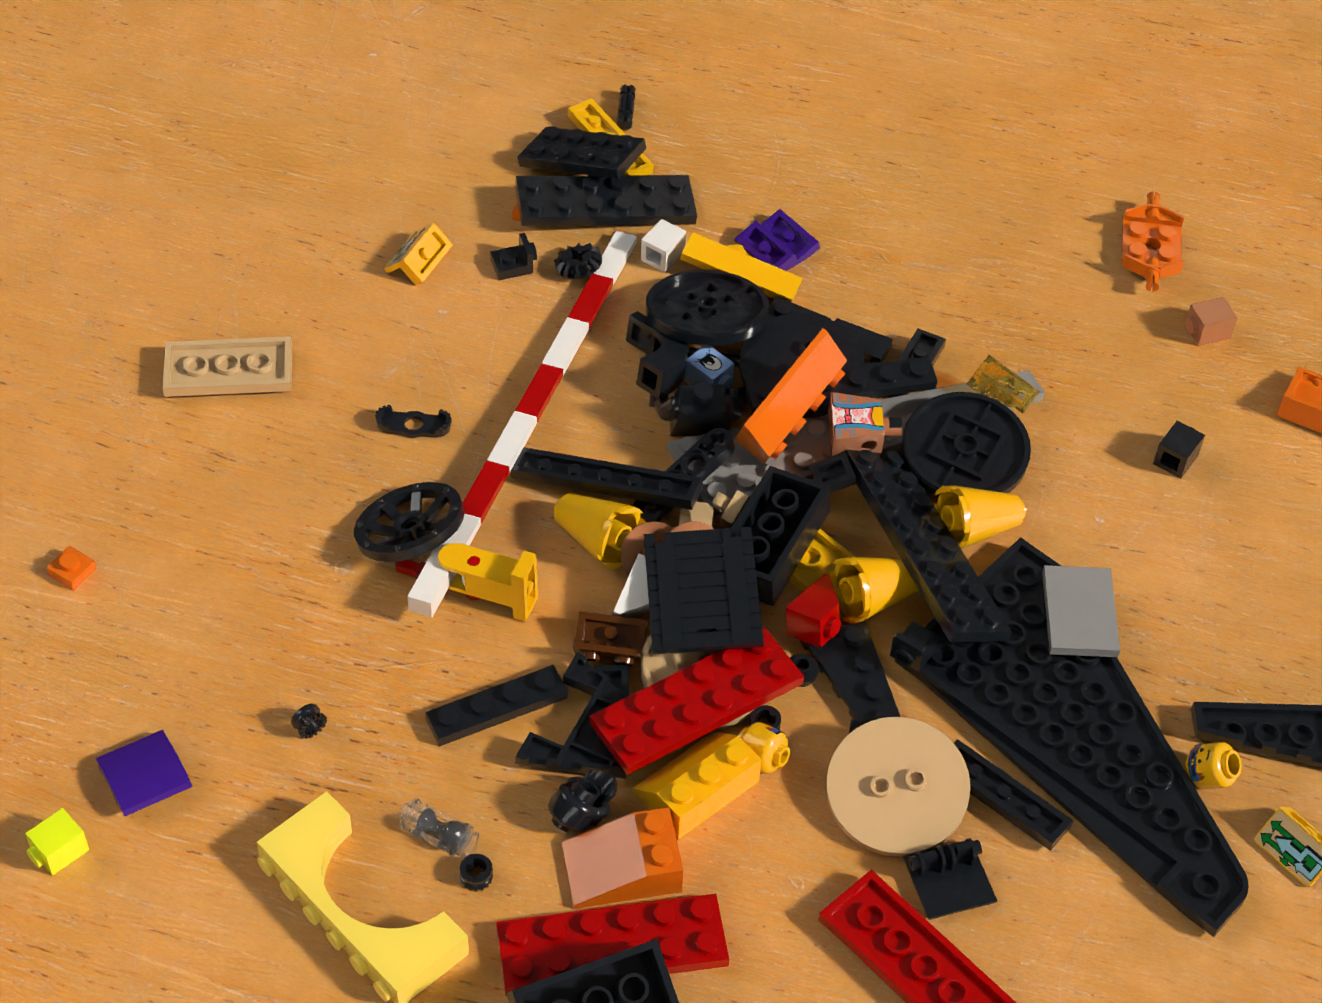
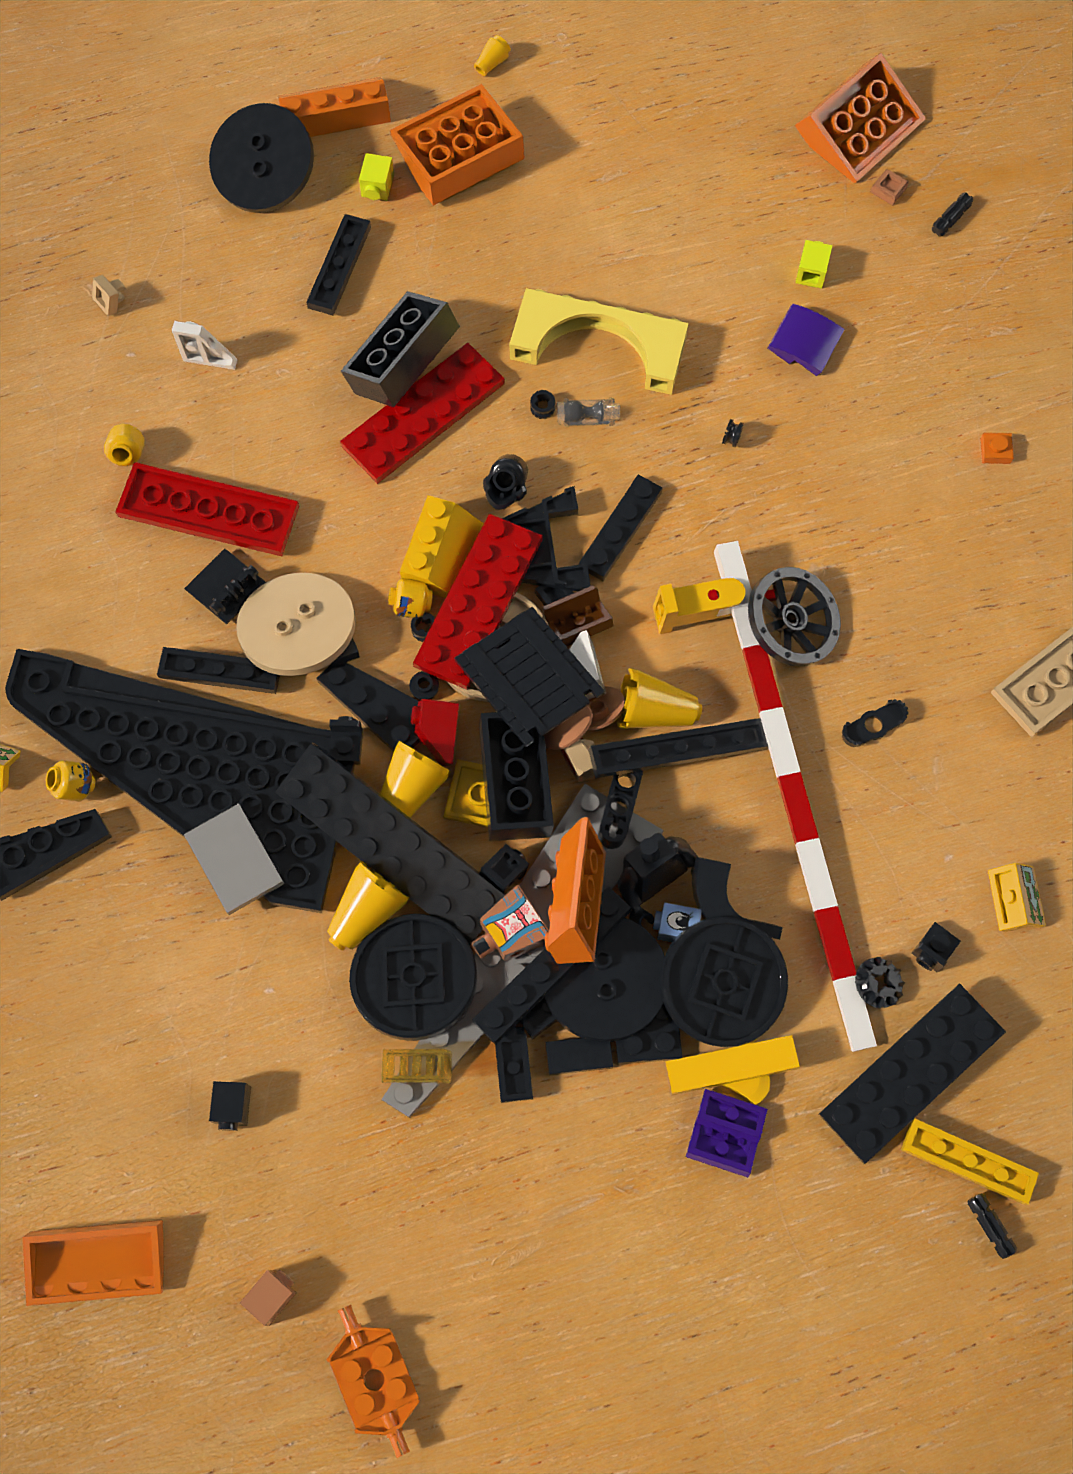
camera: 150 degrees right, 20 degrees up
(582, 152) = (975, 1110): black plate -> none
(624, 860) = (449, 463): orange slope -> none
(663, 245) = (820, 1050): white brick -> none
(729, 507) = (566, 787): tan tile -> none

